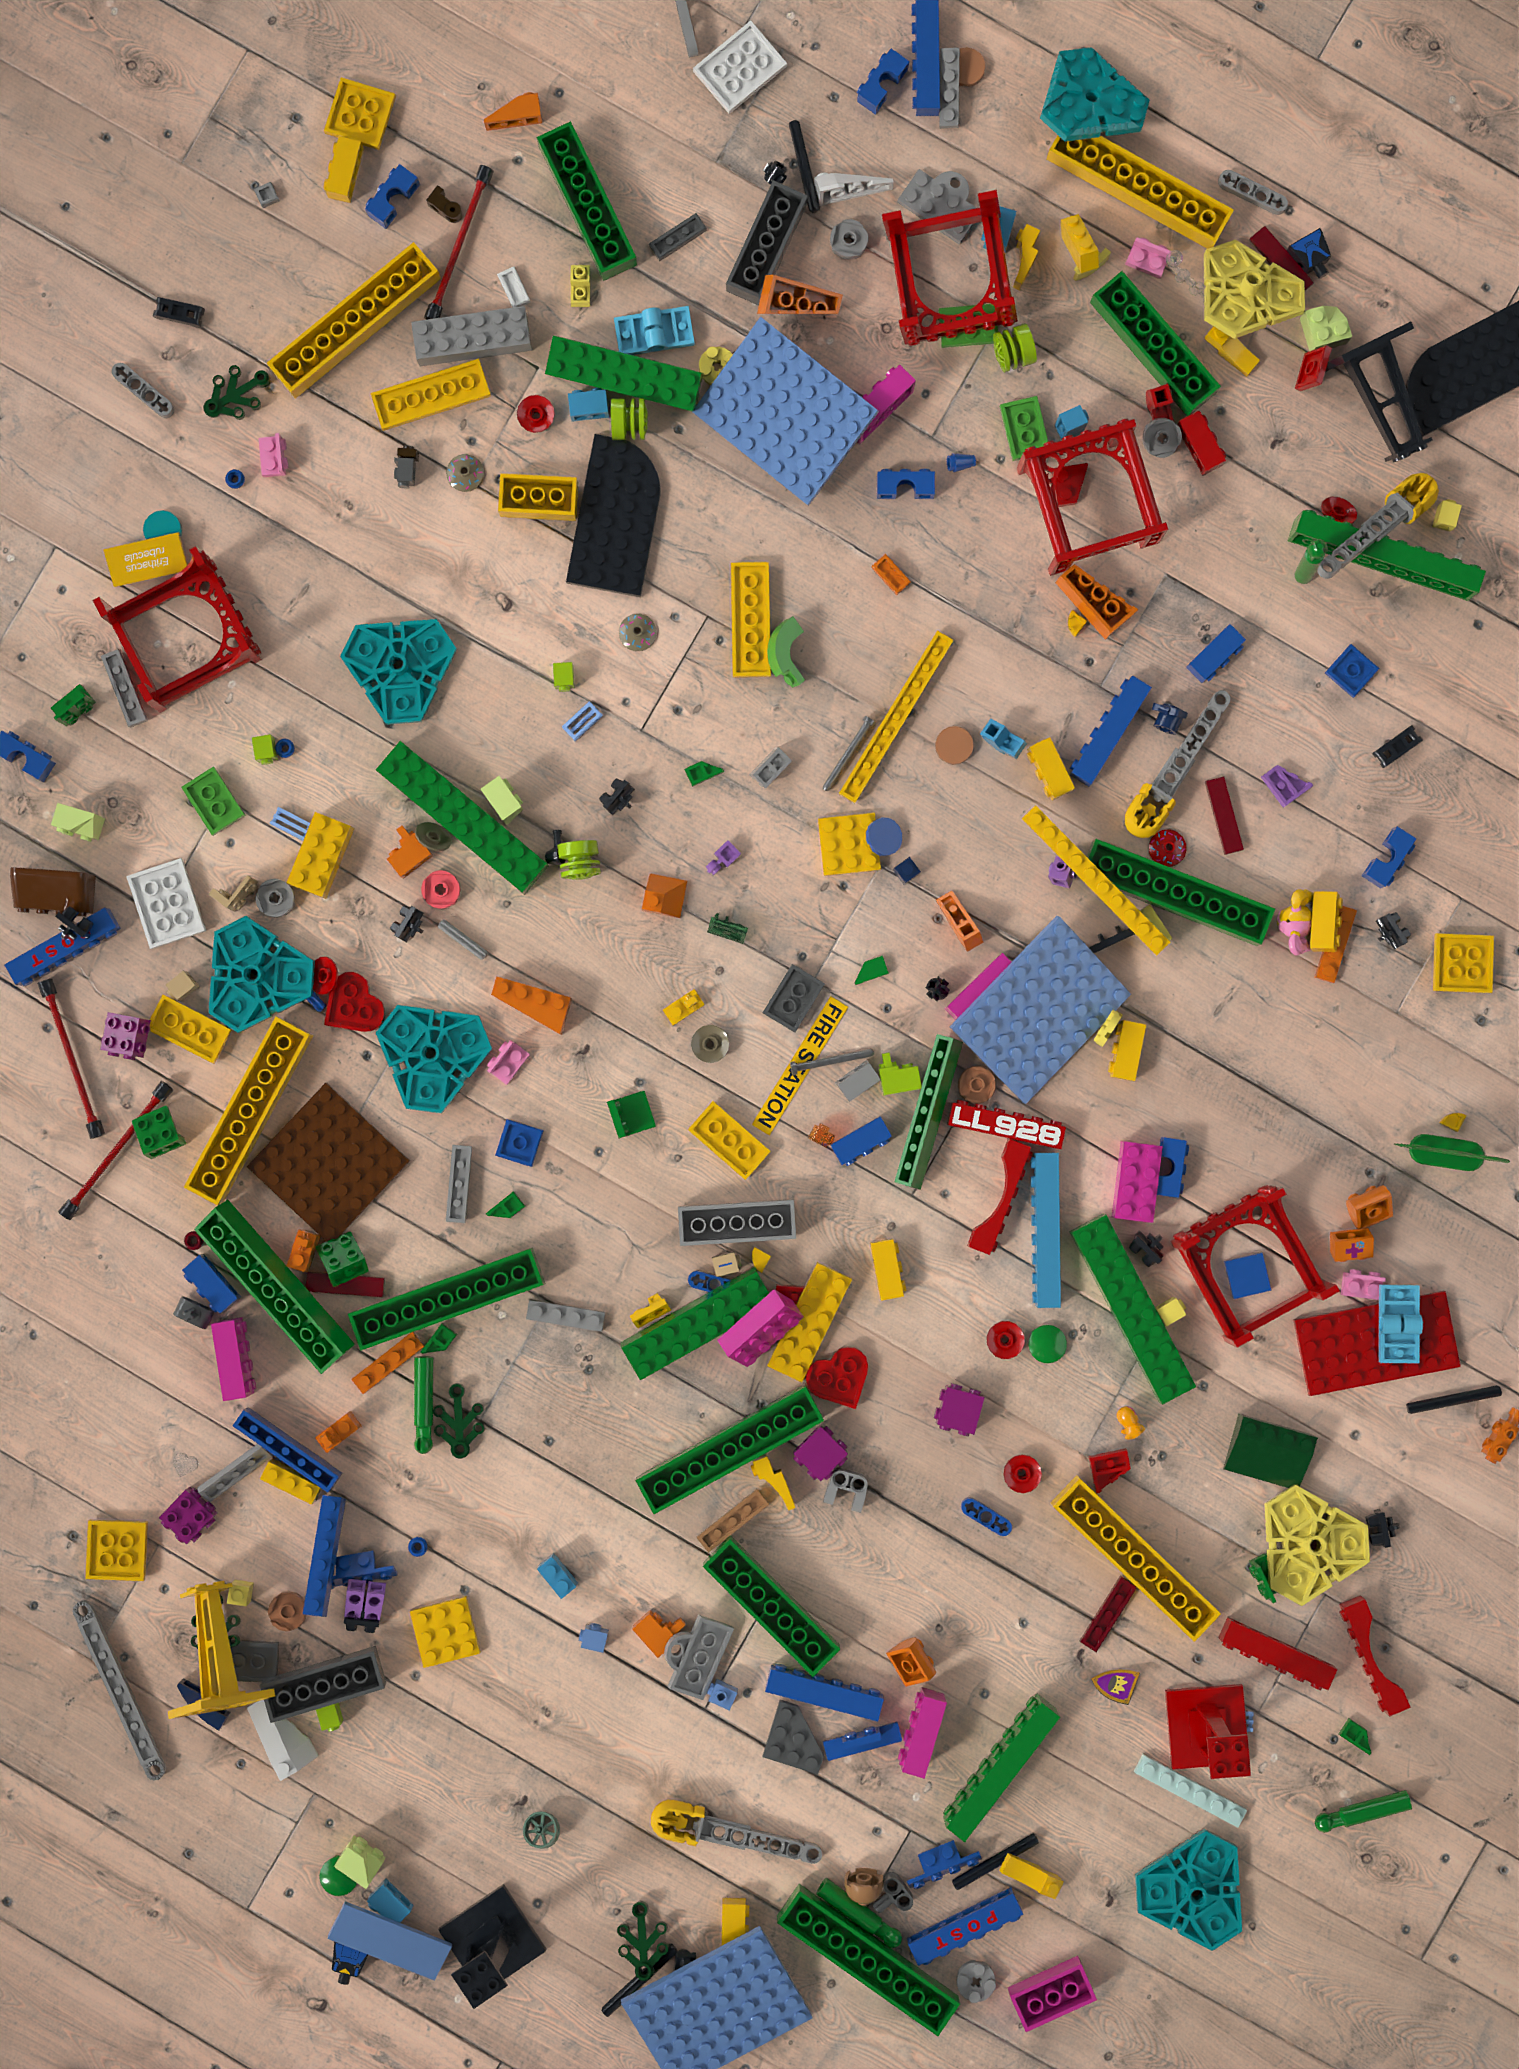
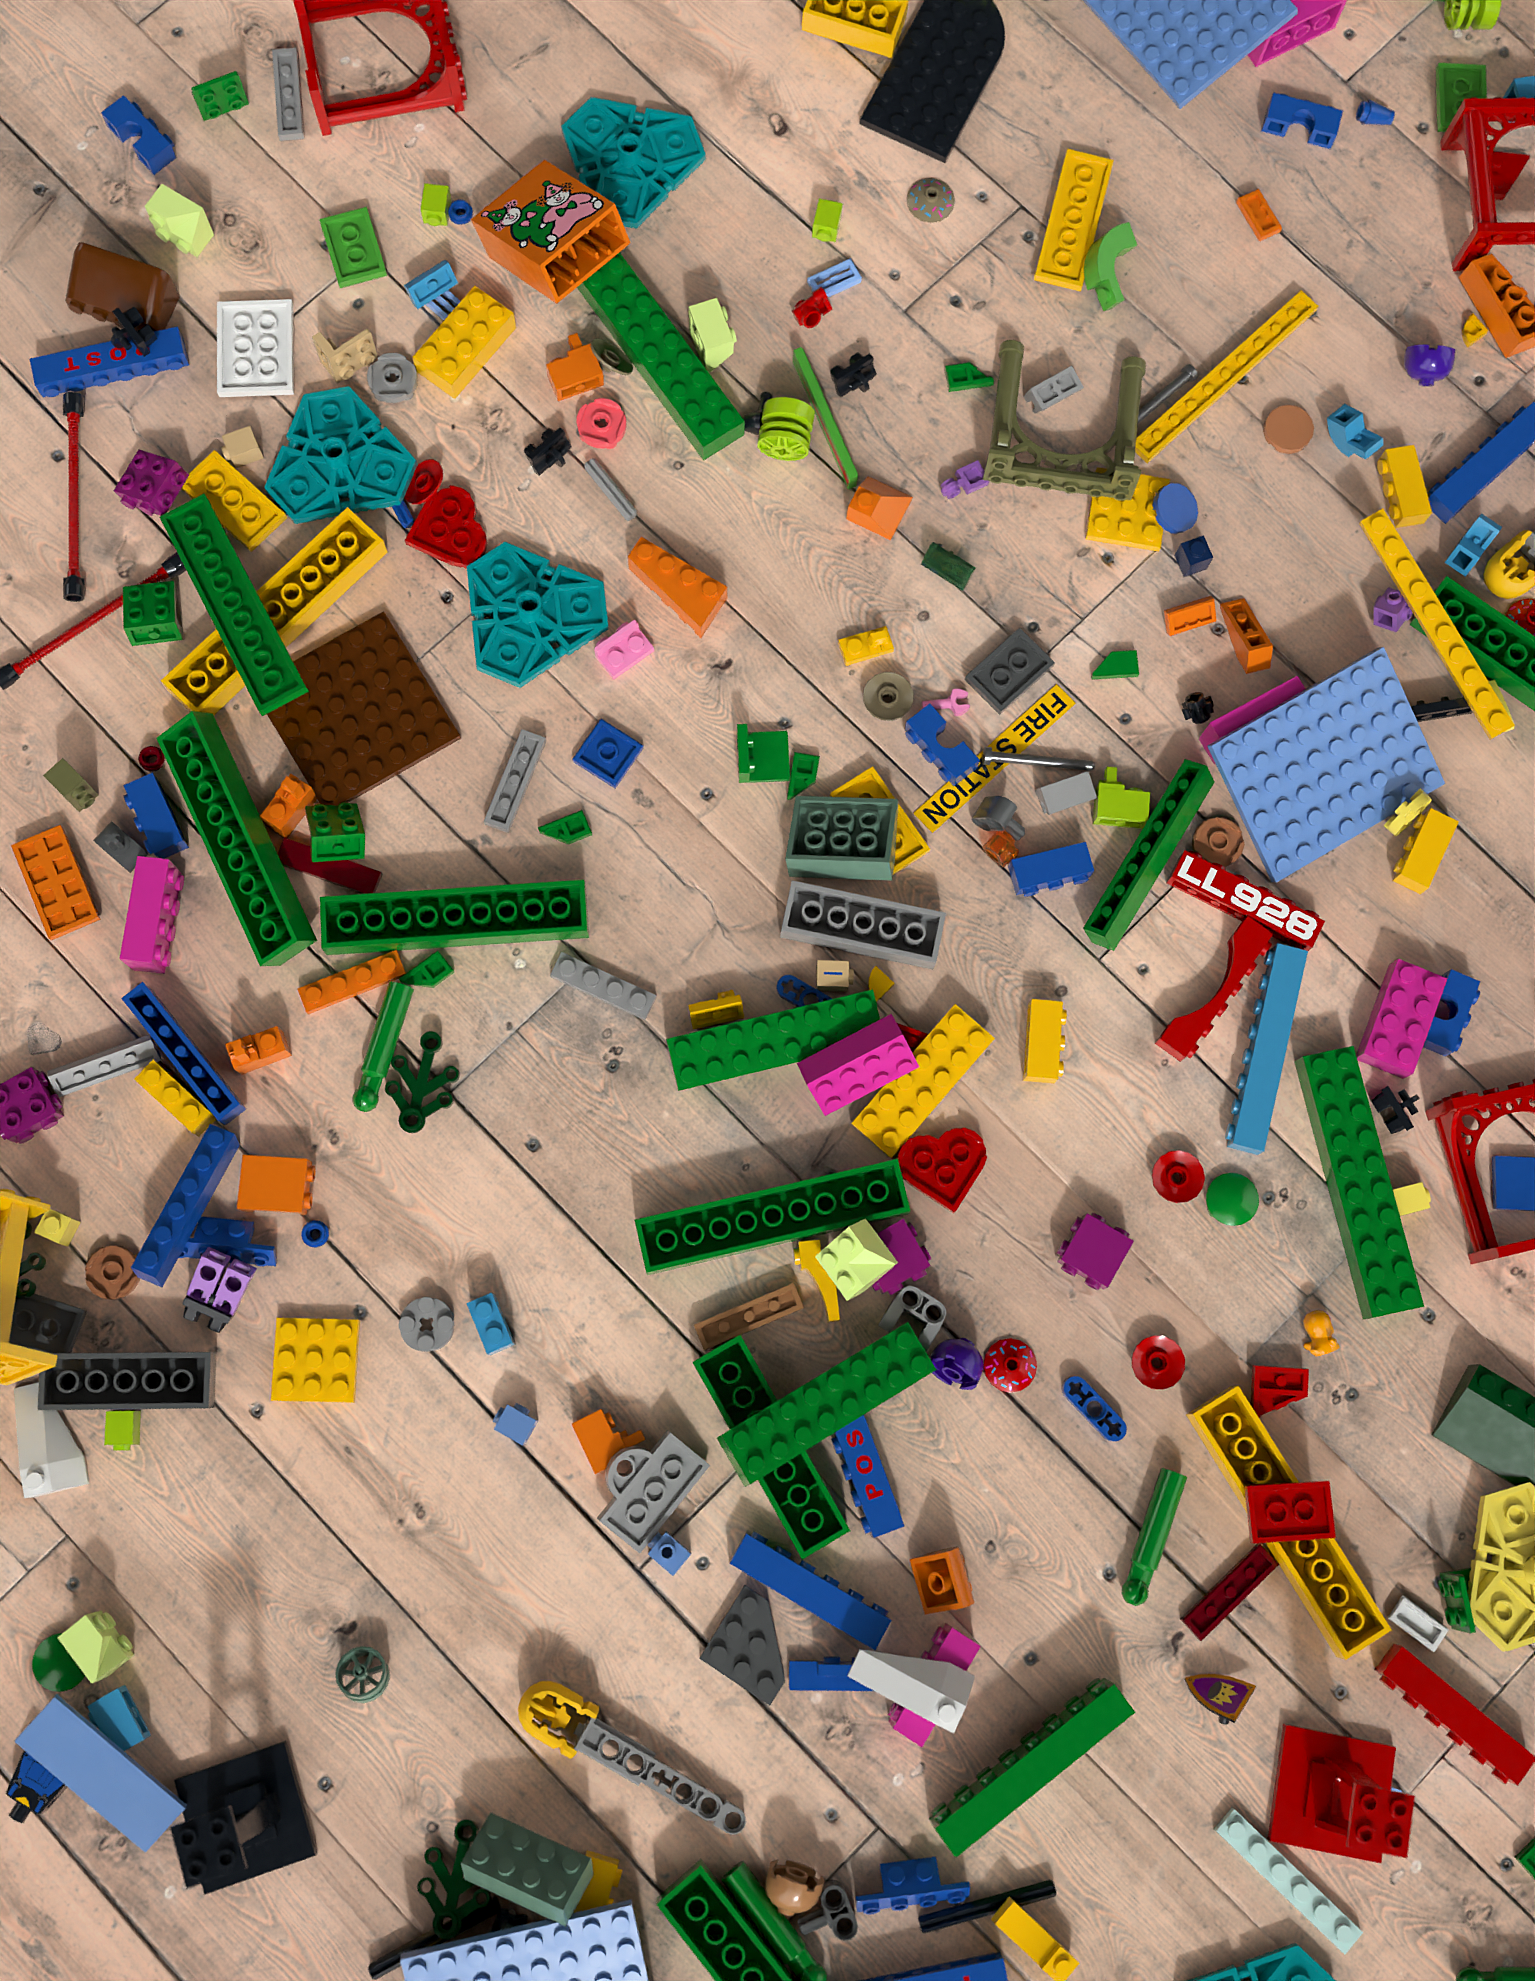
camera: 10 degrees right, 10 degrees down
(145, 1280) = (71, 785): none -> olive brick
(156, 1351) = (55, 882): none -> orange plate
(217, 1116) = (233, 605): none -> green plate
(281, 818) = (431, 284): none -> dark azure plate
(359, 755) = (551, 231): none -> orange brick
(380, 1522) = (275, 1184): none -> orange panel
(503, 1592) = (411, 1323): none -> light grey plate
(569, 754) = (809, 311): none -> red plate
(605, 838) = (825, 418): none -> bright green tile
(664, 1118) = (802, 773): none -> green tile
(687, 1924) = (527, 1869): none -> sand green brick
(705, 1162) = (842, 838): none -> sand green slope
(743, 1061) = (954, 762): none -> blue arch
(753, 1035) = (950, 702): none -> bright pink bar
(795, 1466) = (856, 1259): none -> yellowish green slope
(801, 1570) = (825, 1404): none -> green brick
(813, 1114) = (996, 815): none -> dark grey beam
(832, 794) = (1003, 467): none -> olive arch
(832, 1591) = (868, 1478): none -> blue brick
(884, 1512) = (957, 1362): none -> dark purple cylinder
(914, 1741) = (921, 1685): none -> white wedge
(915, 917) = (1190, 615): none -> orange plate
(919, 1492) = (996, 1365): none -> red dish
(1047, 665) = (1428, 363): none -> dark purple cylinder
(1047, 1591) = (1153, 1535): none -> green piece
(1111, 804) = (1473, 544): none -> dark azure brick
(1133, 1556) = (1290, 1512): none -> red plate
(1240, 1600) = (1418, 1623): none -> white tile

